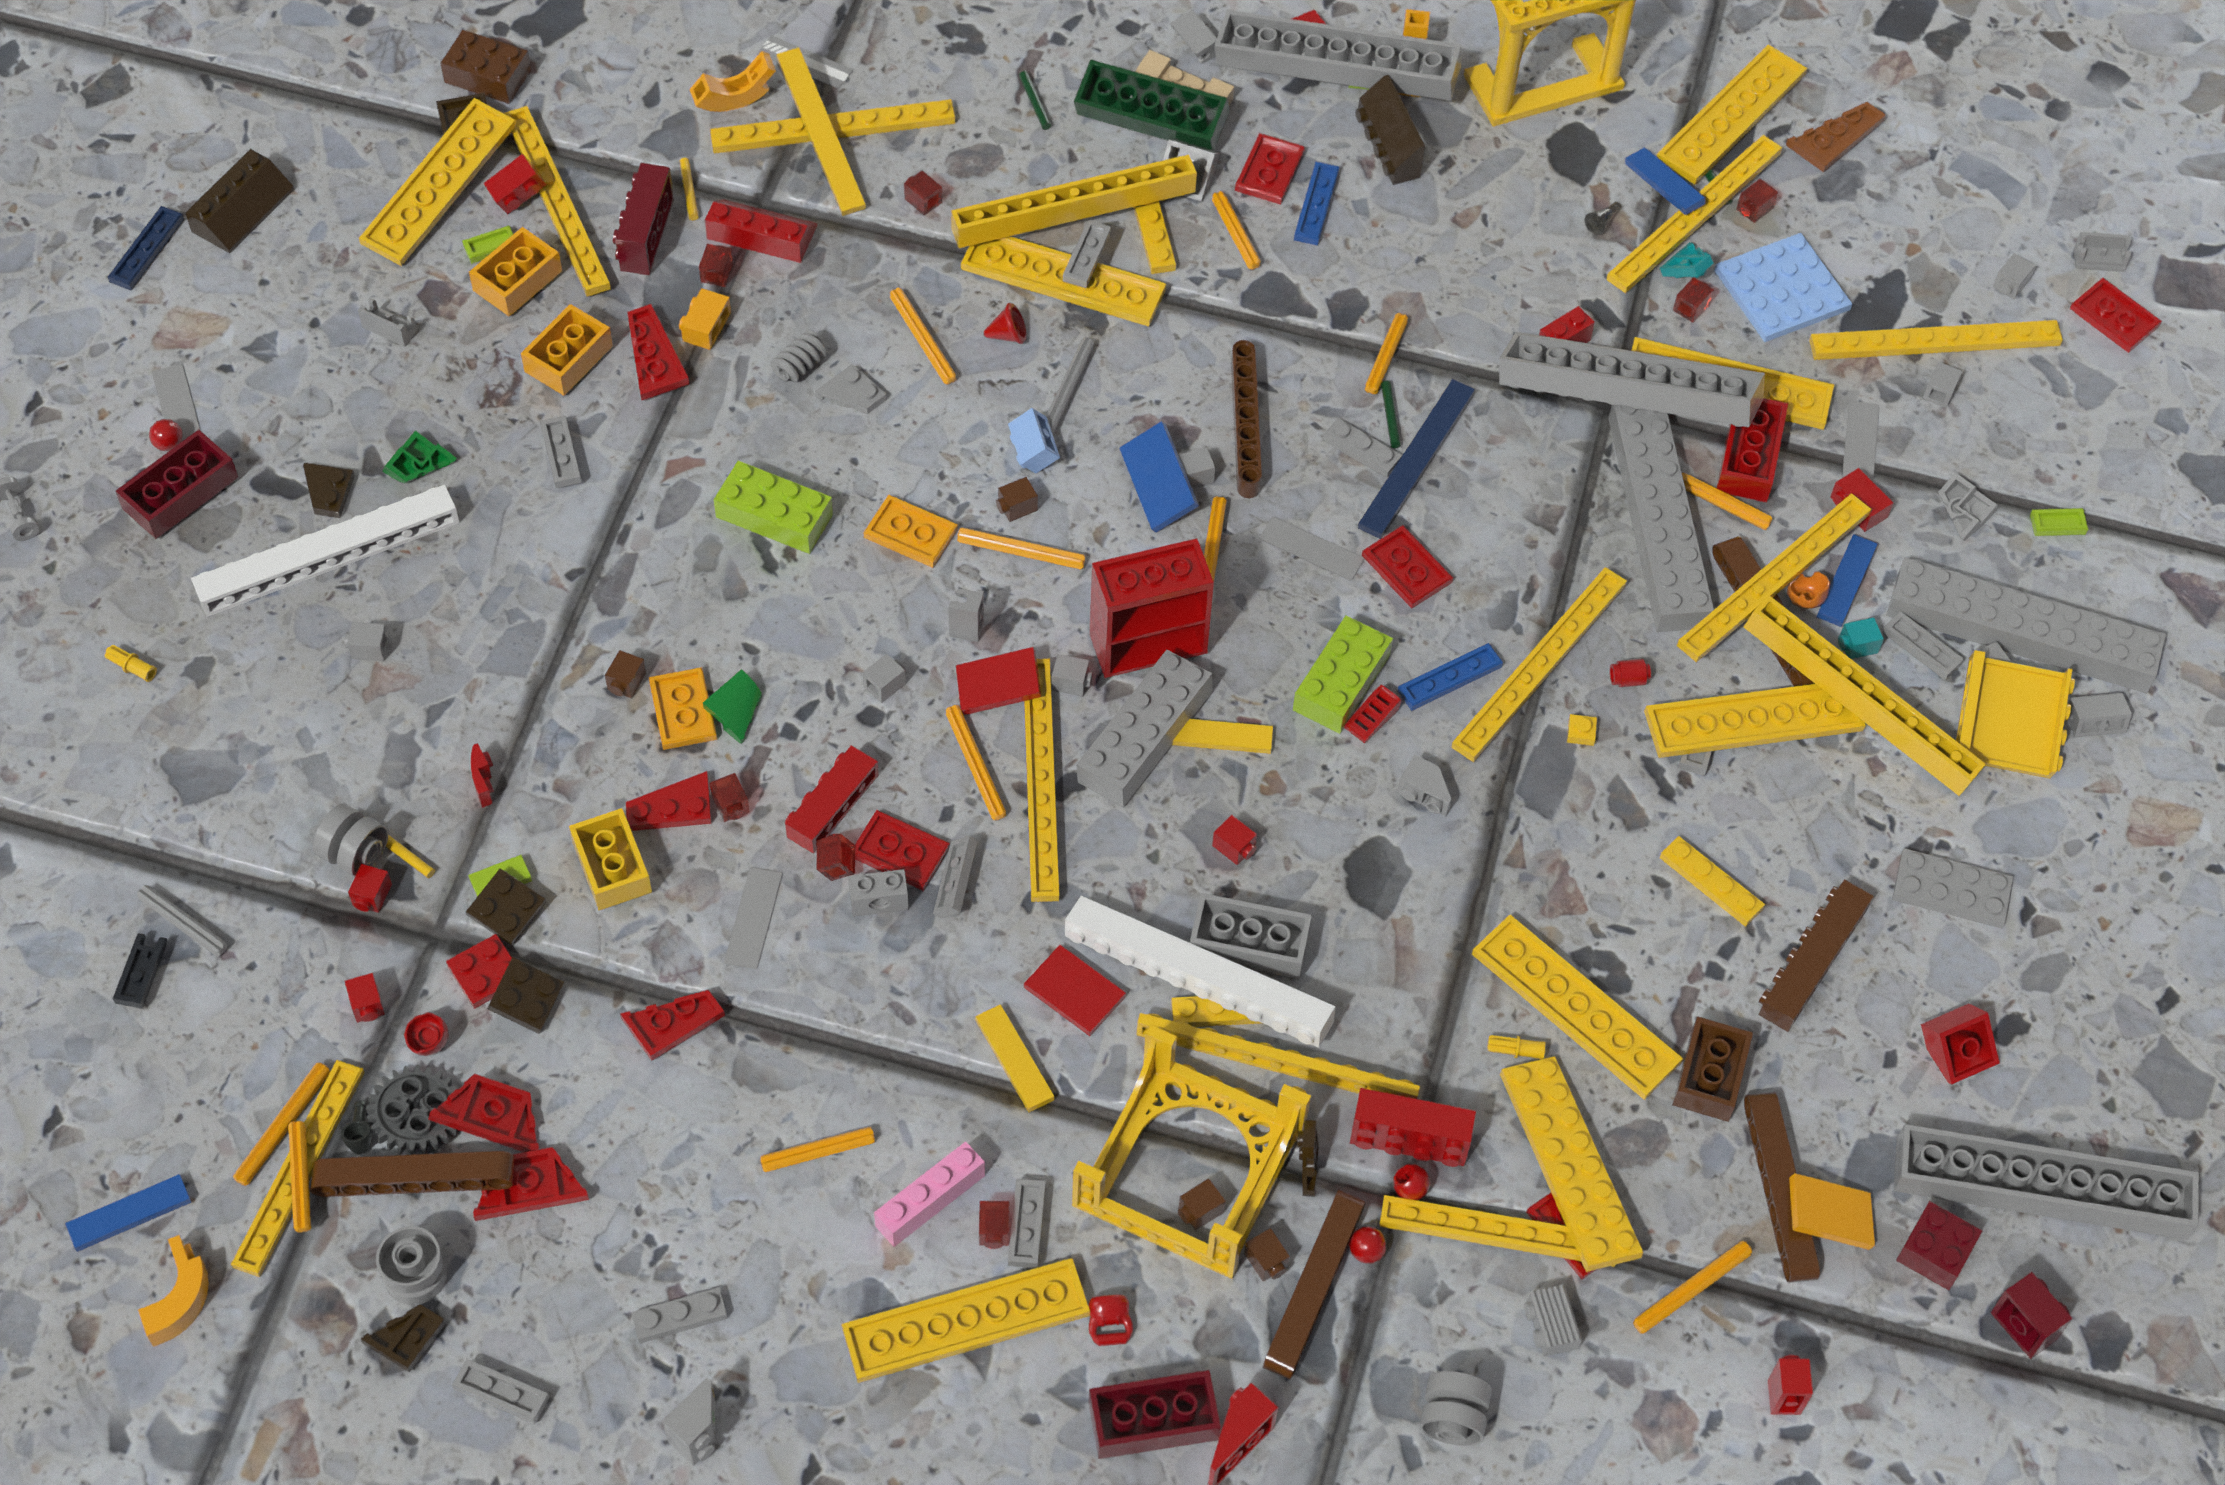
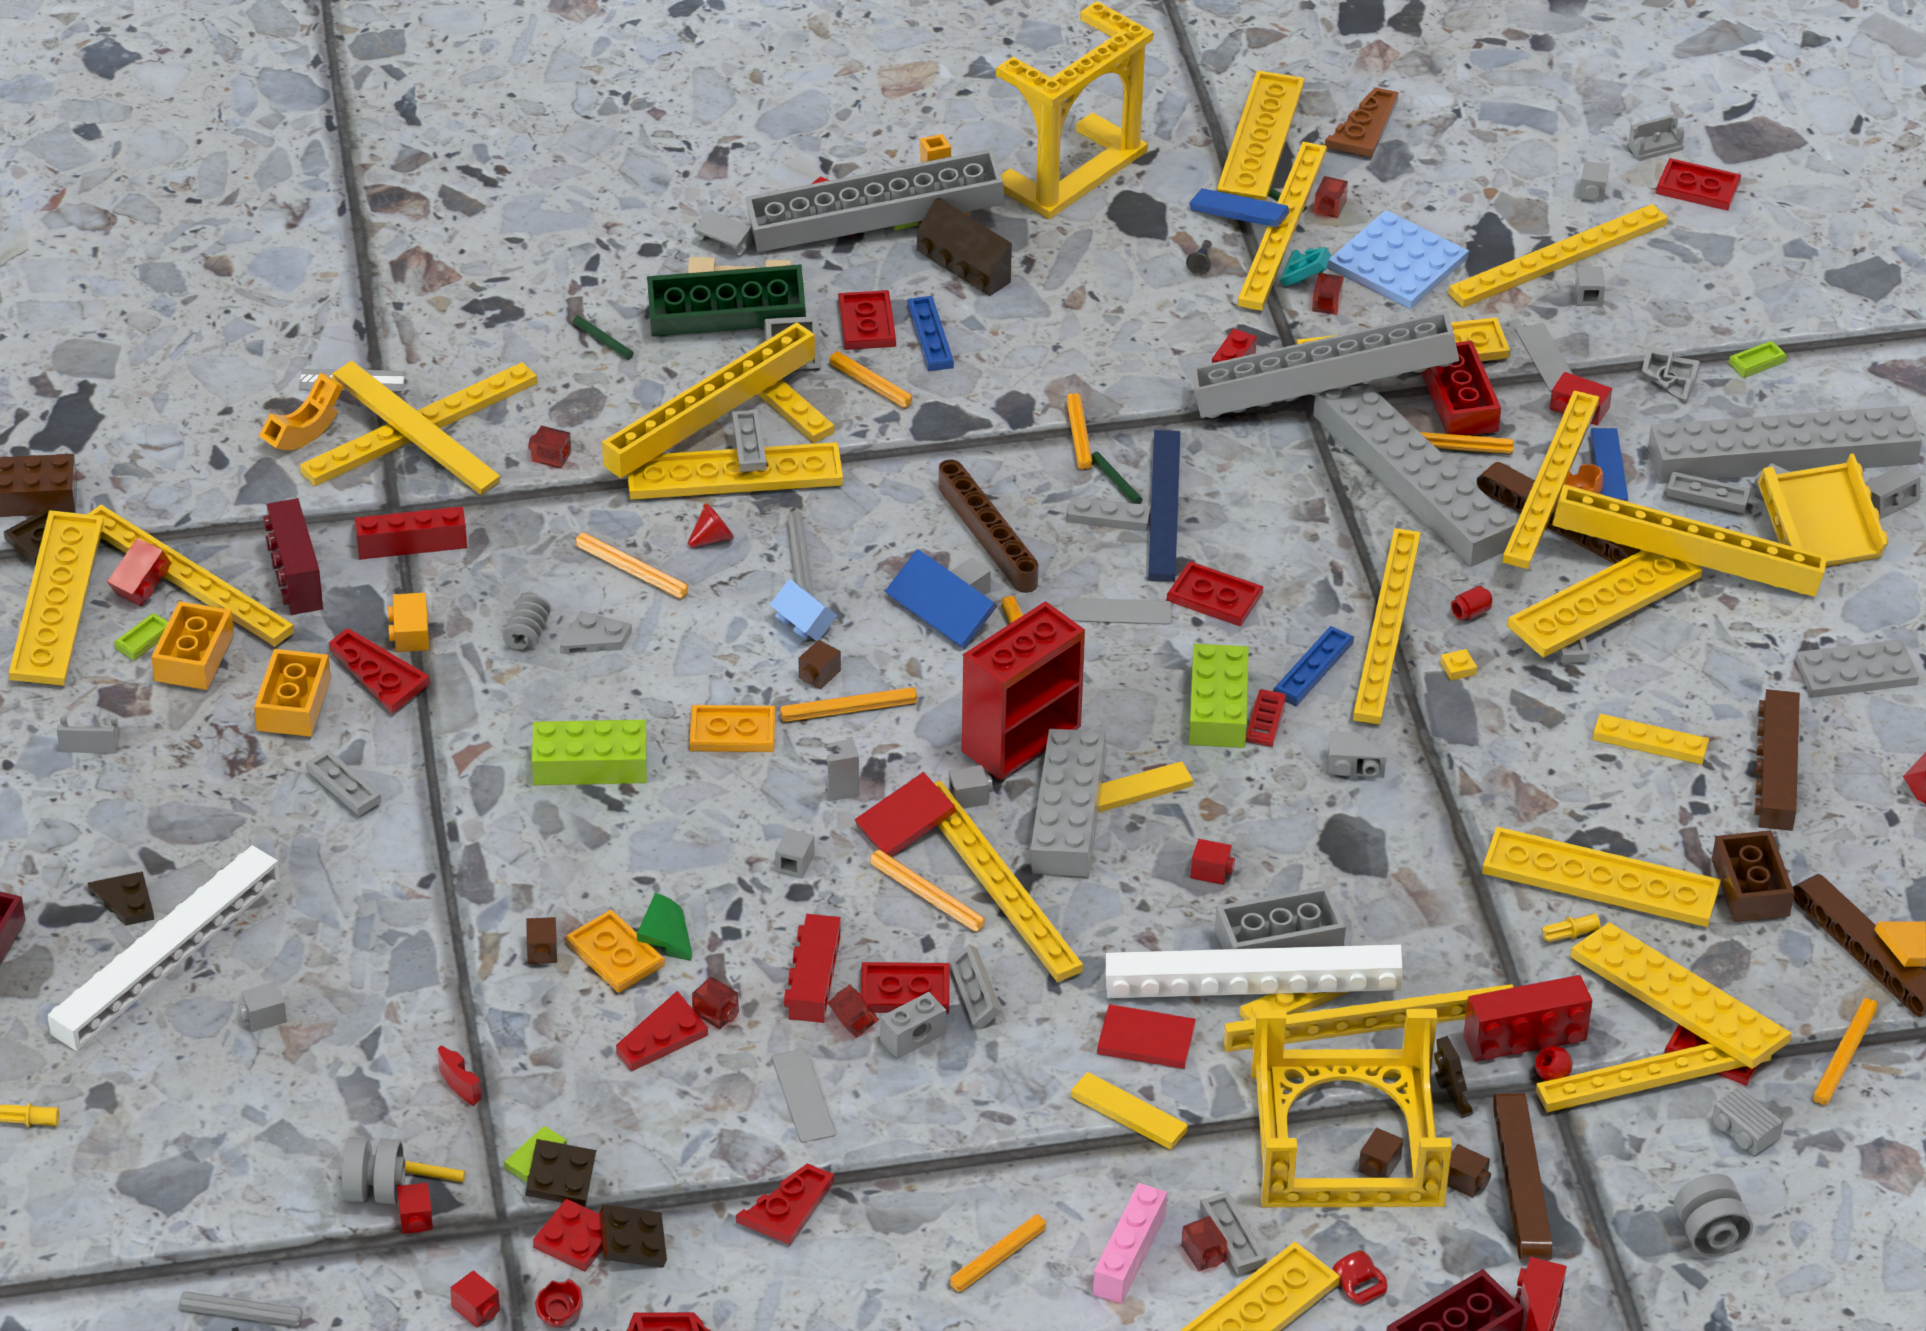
camera: 25 degrees left, 15 degrees down
(417, 459) = (201, 840): green slope -> none
(610, 859) = (638, 1092): yellow brick -> none
(689, 189) = (318, 528): yellow bar -> none
(715, 265) = (388, 574): clear red brick -> none
(1367, 1245) = (1548, 1127): red piece -> none
(1860, 638) = (1655, 497): teal brick -> none

